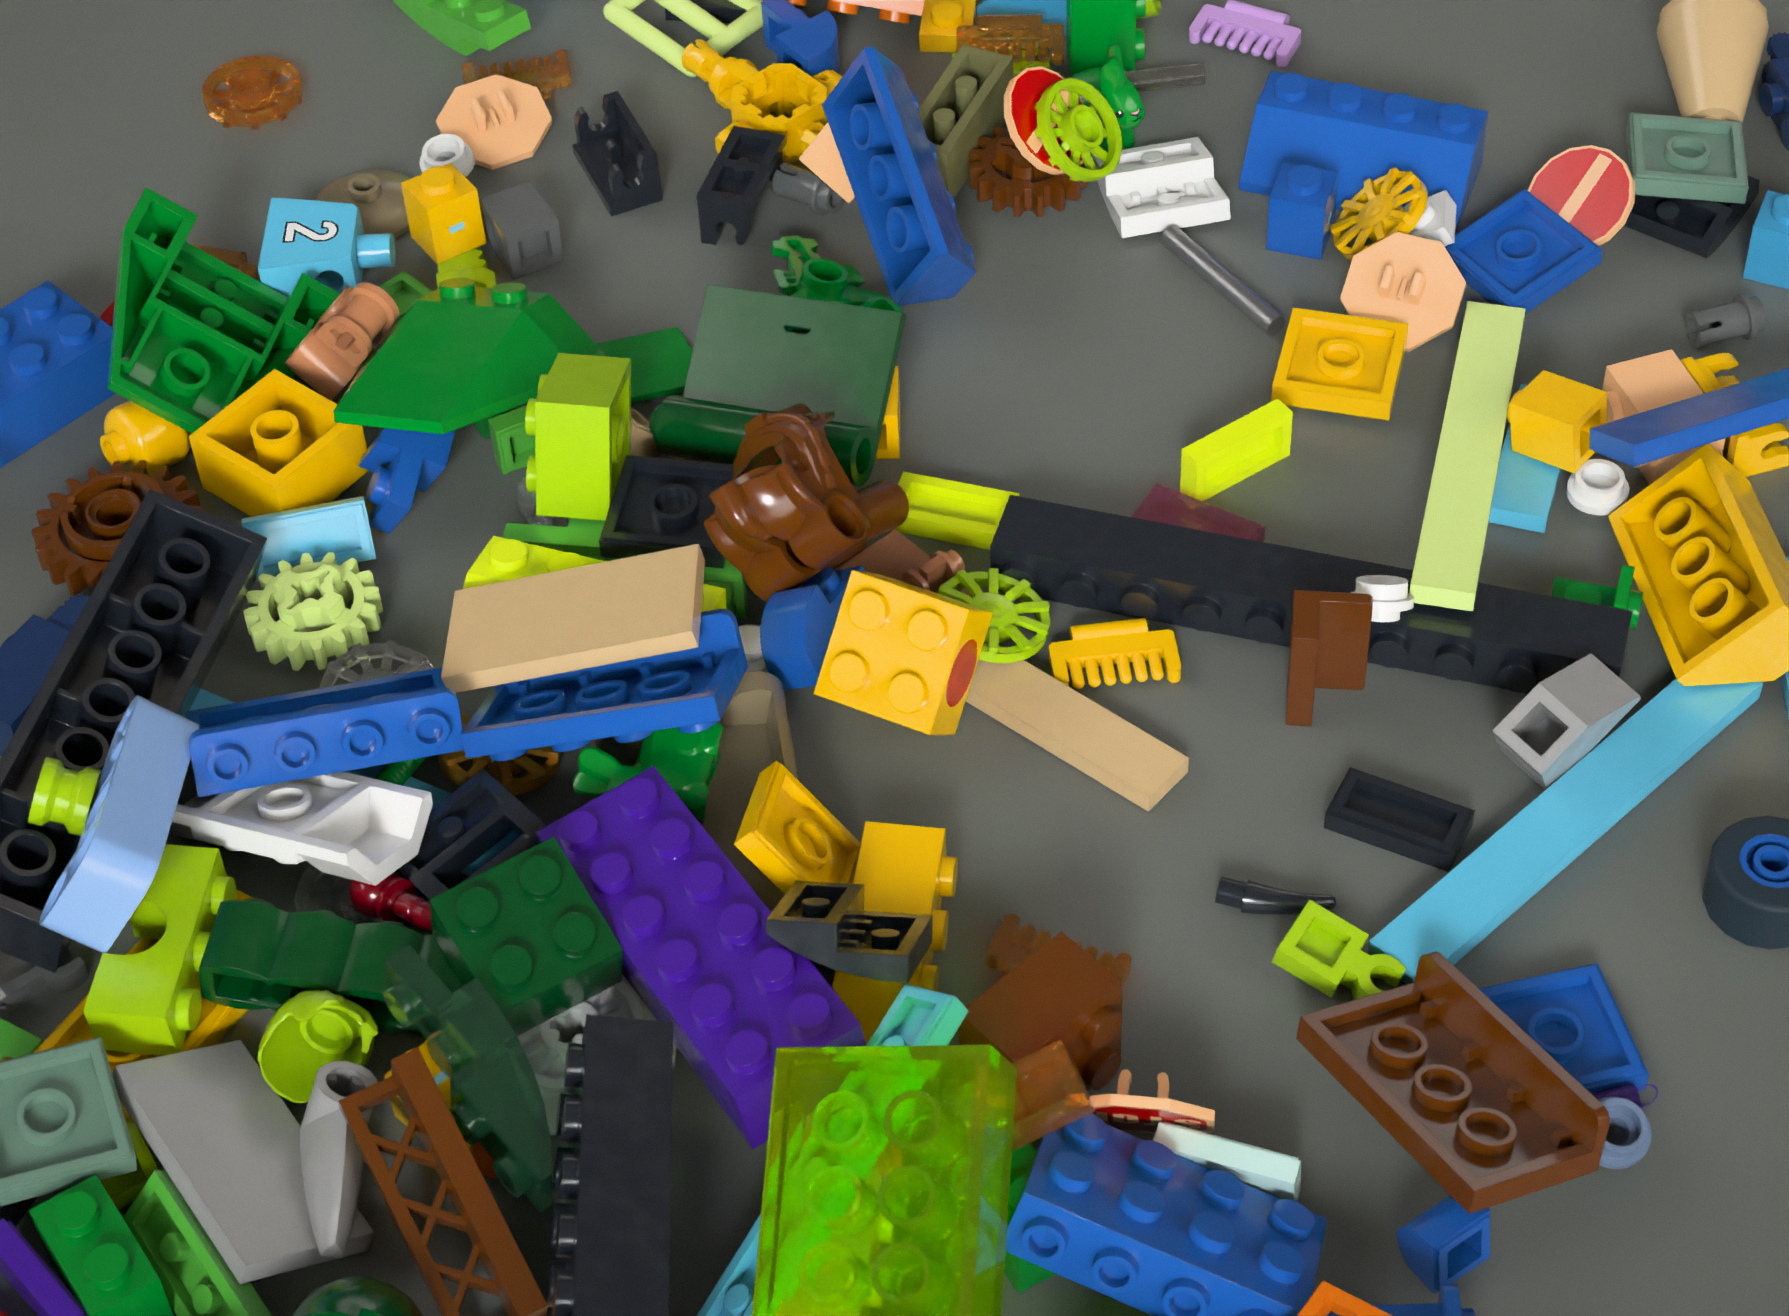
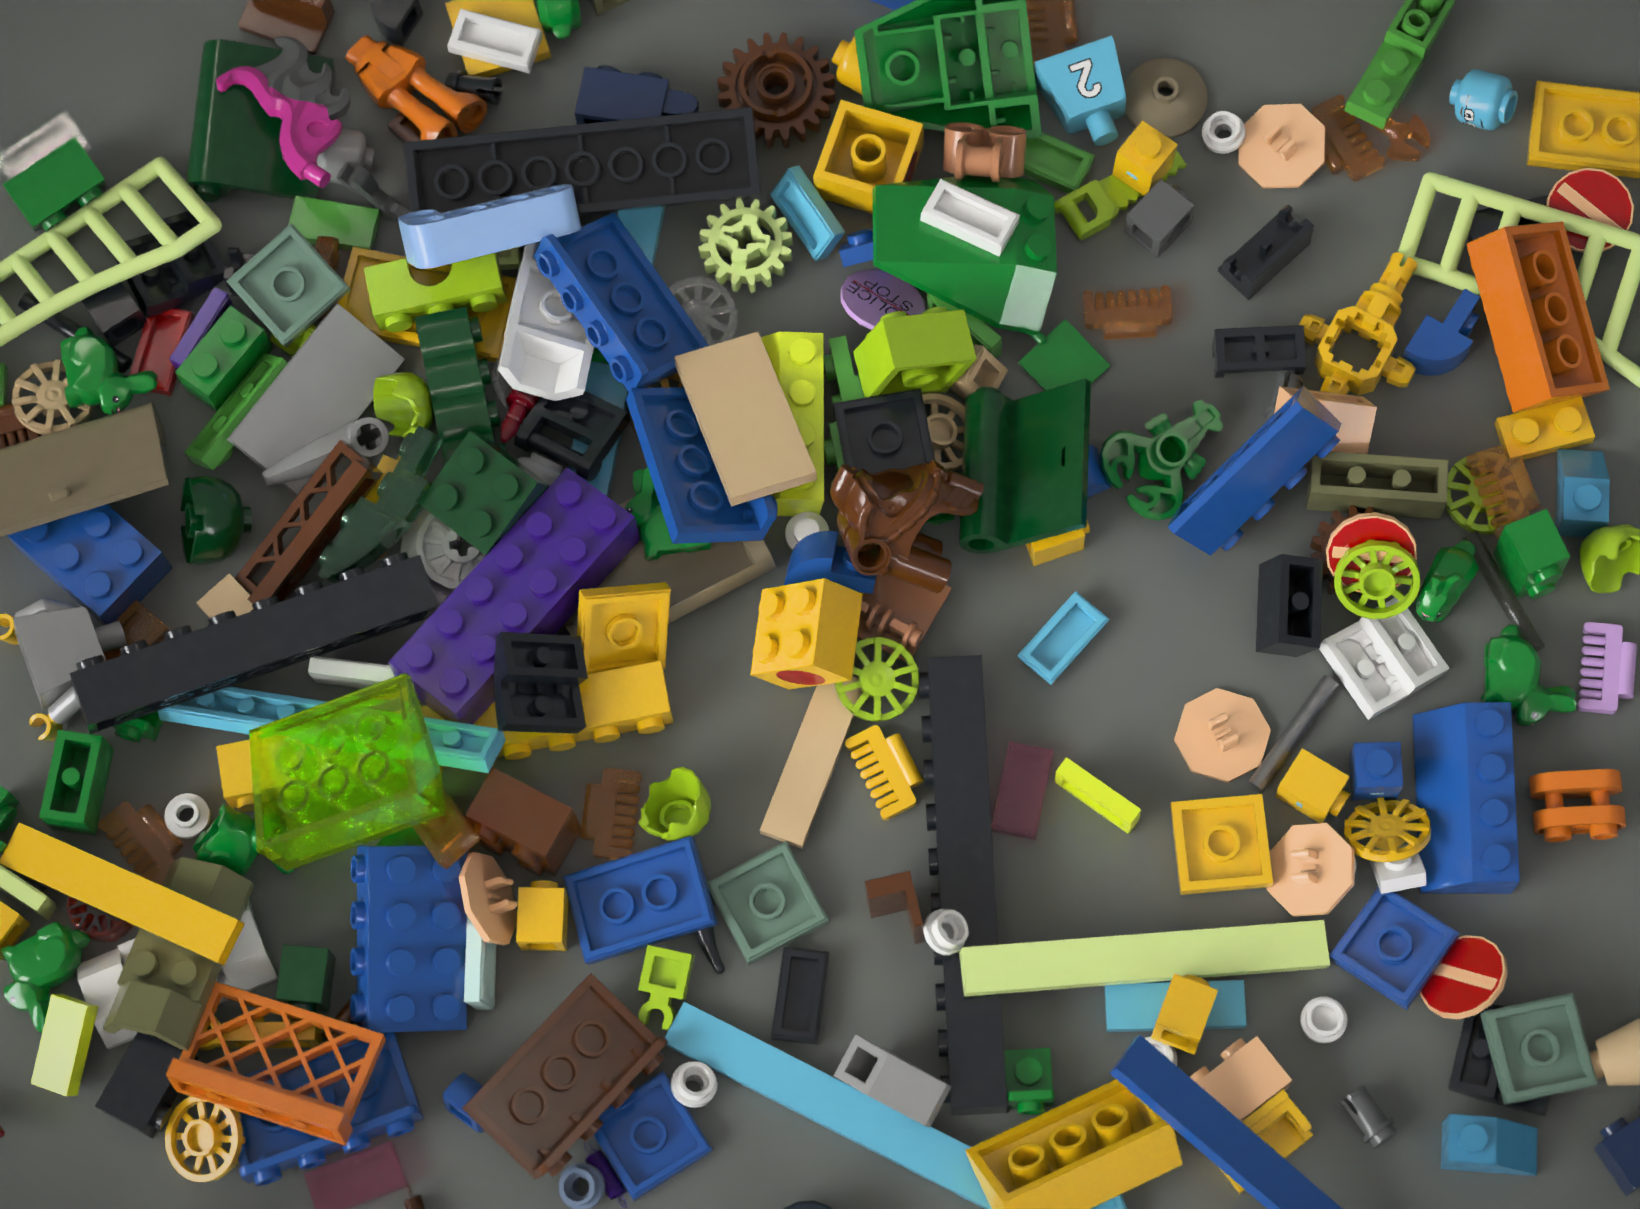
camera: 75 degrees right, 25 degrees up
(63, 795) = (485, 183): lime wheel -> none
(435, 331) = (970, 217): none -> white tile
(476, 494) = (875, 293): none -> lavender piece
(547, 30) = (1398, 132): none -> clear orange bar
(621, 294) = (1128, 321): none -> clear orange piece
(710, 1215) = (347, 672): none -> white tile
(952, 510) = (985, 618): neon yellow tile -> none
(1013, 444) = (1063, 637): none -> medium azure tile
(1069, 225) = (1289, 605): none -> black brick
(1081, 866) = (676, 806): none -> lime hair
(1196, 343) = (1222, 735): none -> light nougat piece
(1198, 1061) = (542, 917): none -> yellow brick
(1202, 955) = (640, 900): none -> blue tile
(1225, 85) = (1514, 677): none -> green animal
(1253, 822) = (767, 903): none -> sand green tile
(1299, 267) = (1314, 787): none -> yellow brick
(1424, 64) = (1560, 822): none -> orange brick
(1495, 957) = (702, 1075): none -> white plate
(1591, 331) = (1323, 1020): none -> white plate

